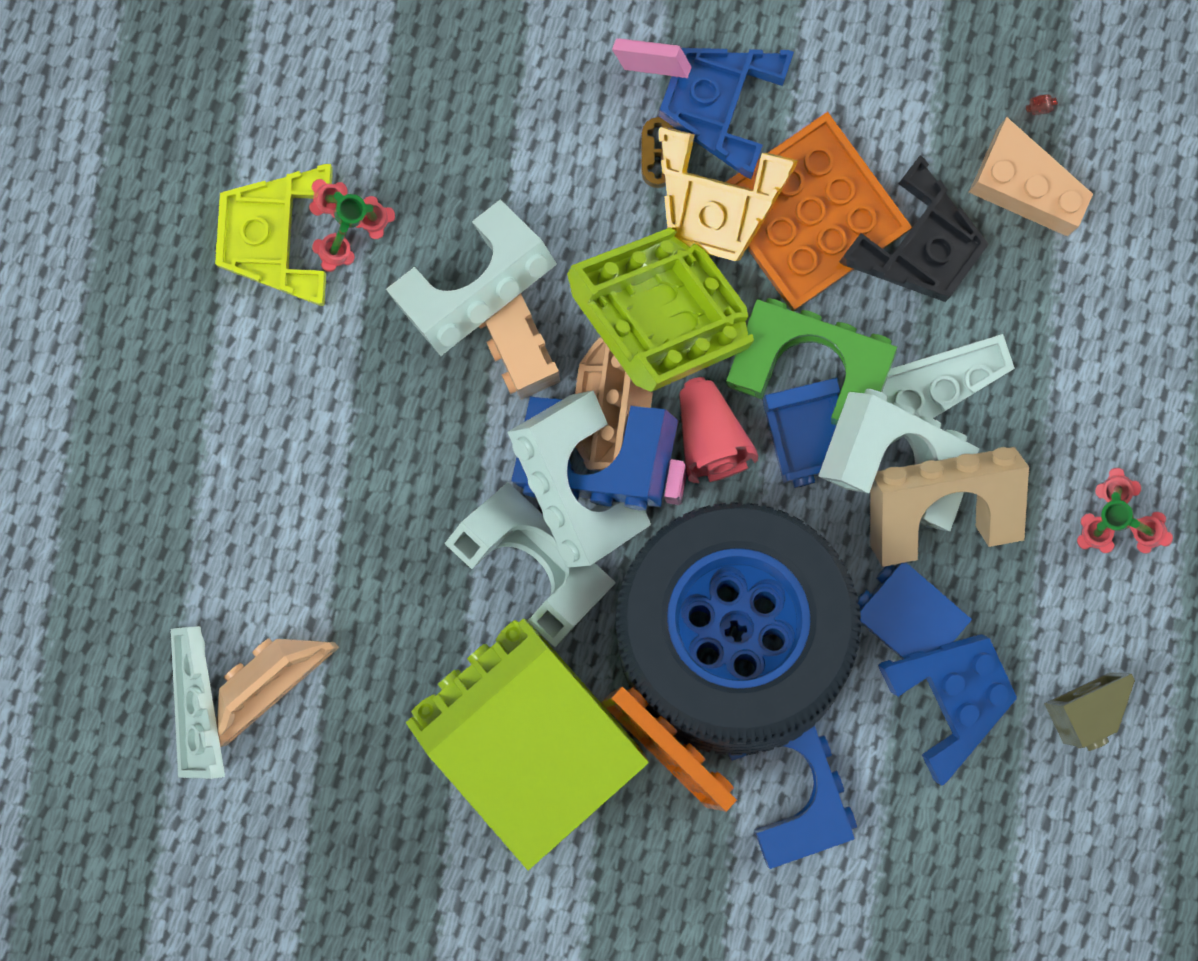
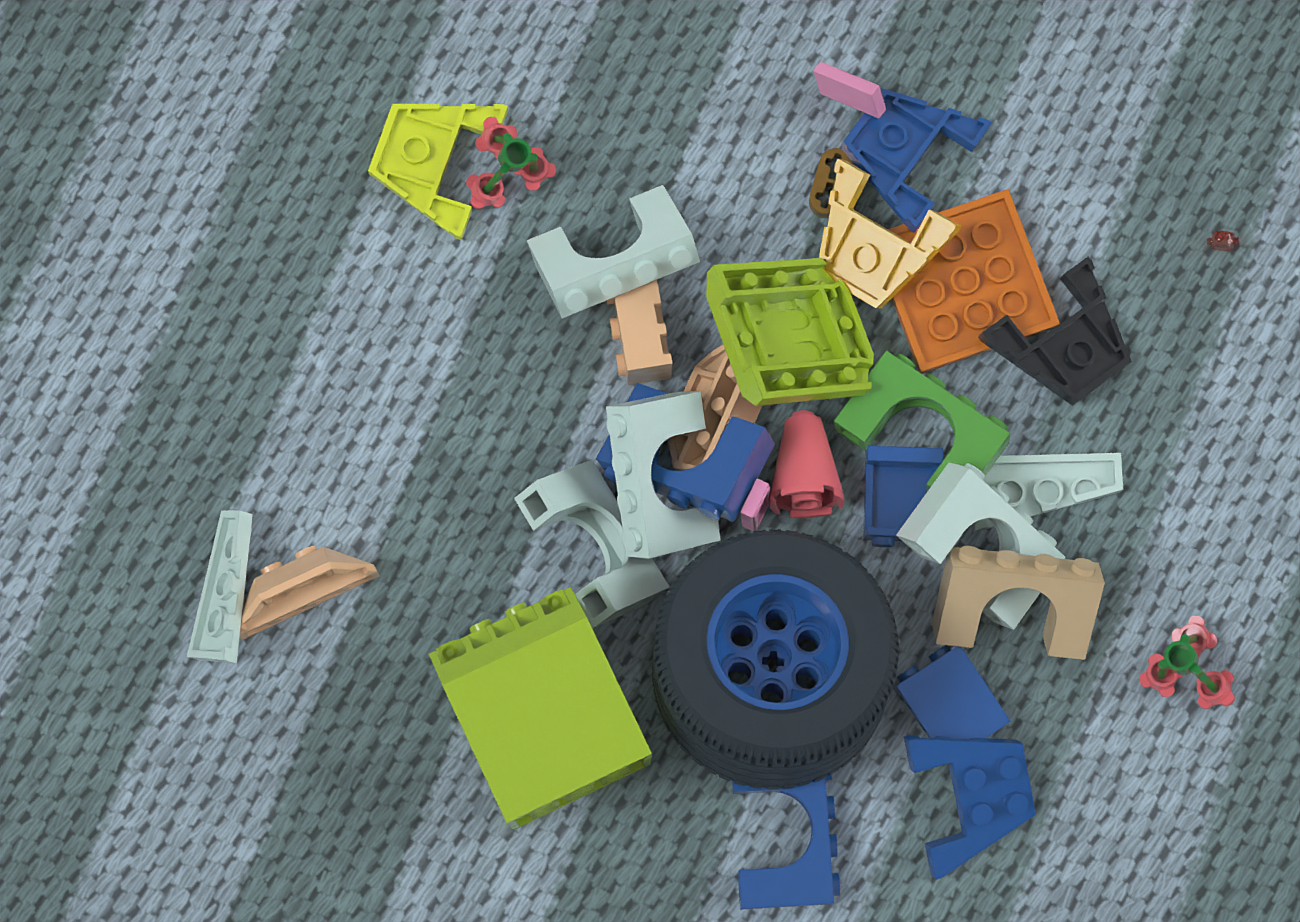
camera: 15 degrees right, 5 degrees down
(681, 760) = (676, 762): orange plate -> none
(1030, 182) = (1189, 312): light nougat wedge -> none
(1092, 710) = (1102, 845): olive slope -> none

